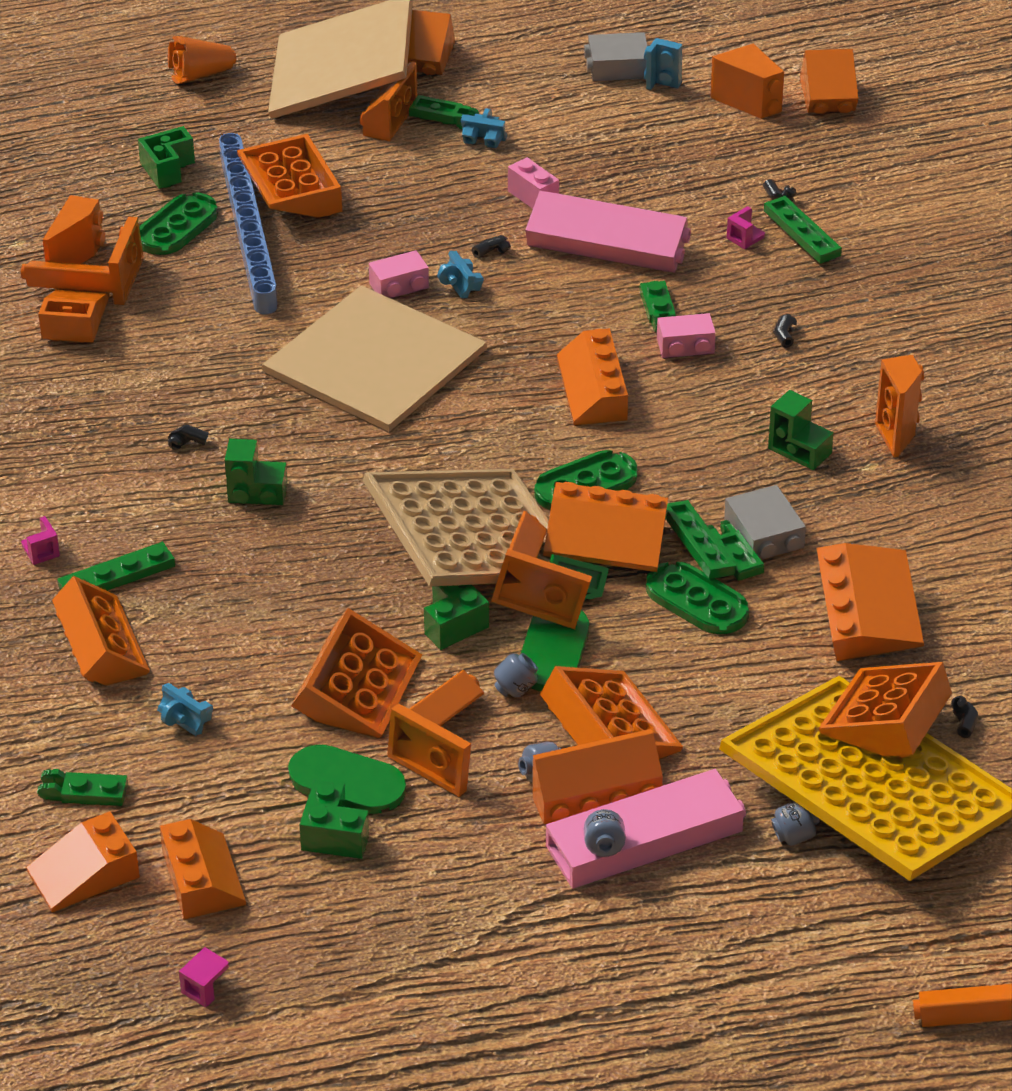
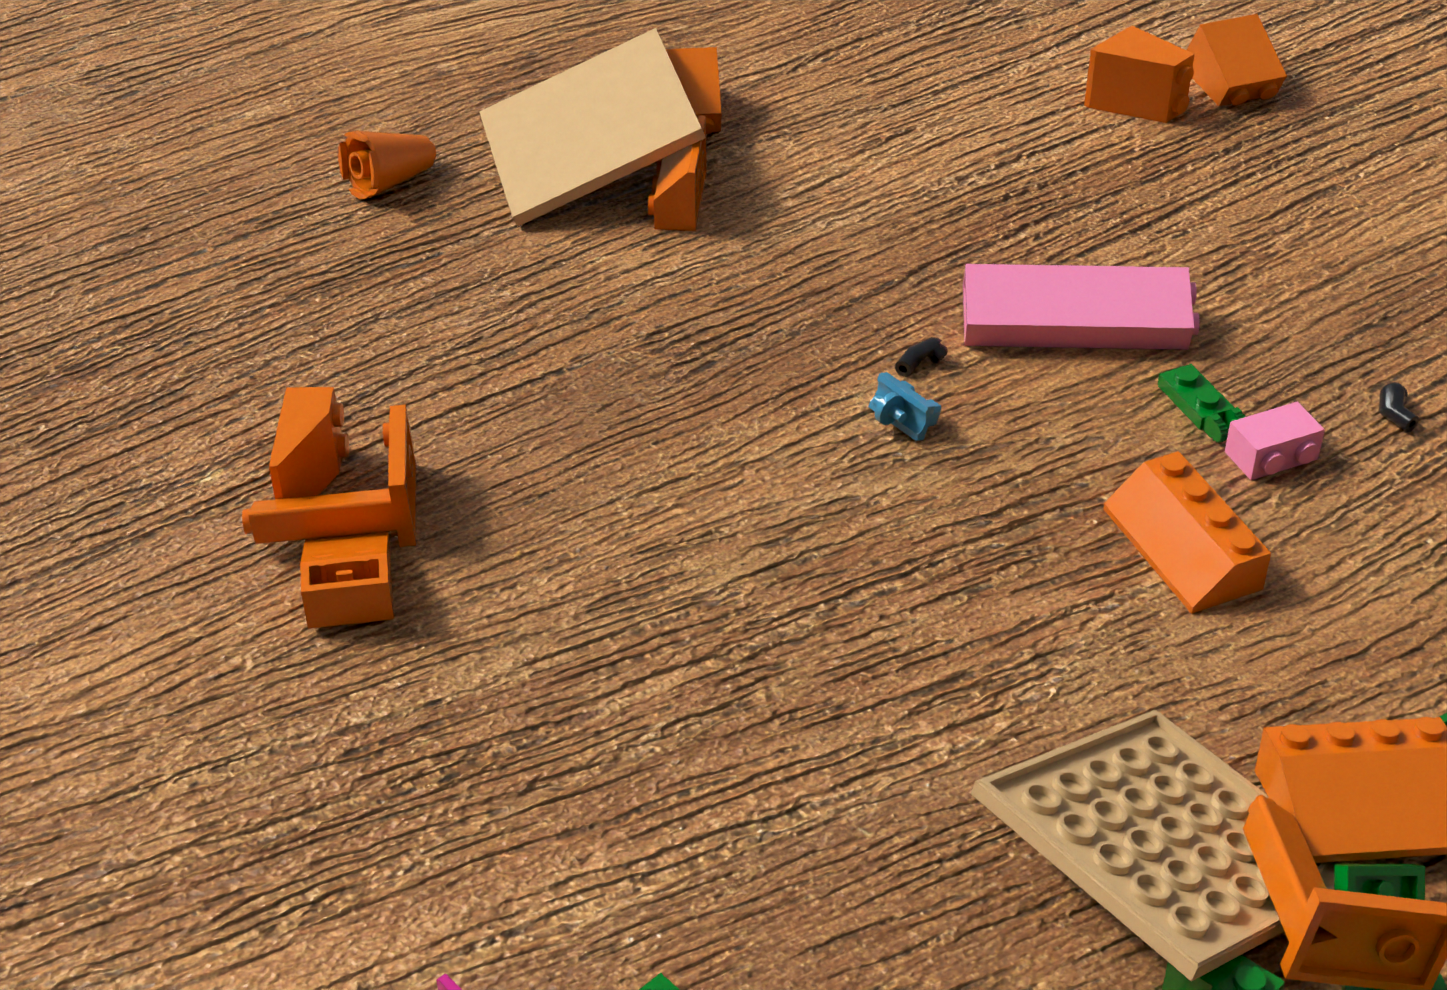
camera: 15 degrees left, 0 degrees up
(165, 155) = (395, 303): green brick -> none
(177, 223) = (450, 400): green tile -> none
(185, 434) = (612, 753): black arm -> none
(248, 226) = (561, 389): medium blue beam -> none
(253, 480) = (762, 817): green brick -> none
(293, 176) = (600, 302): orange slope -> none
(374, 358) = (841, 563): tan tile -> none
(399, 274) = (815, 423): bright pink brick -> none
(440, 110) = (755, 179): green hinge -> none
(483, 126) = (822, 190): dark azure hips -> none
(527, 179) = (933, 258): bright pink brick -> none
(596, 469) = (1269, 692): green tile -> none
(616, 56) = (945, 72): light grey brick -> none
(663, 63) = (1019, 70): dark azure bracket -> none
(741, 230) = (1248, 274): dark pink panel -> none
(774, 192) = (1256, 217): black arm -> none
(802, 229) = (1325, 259): green plate -> none

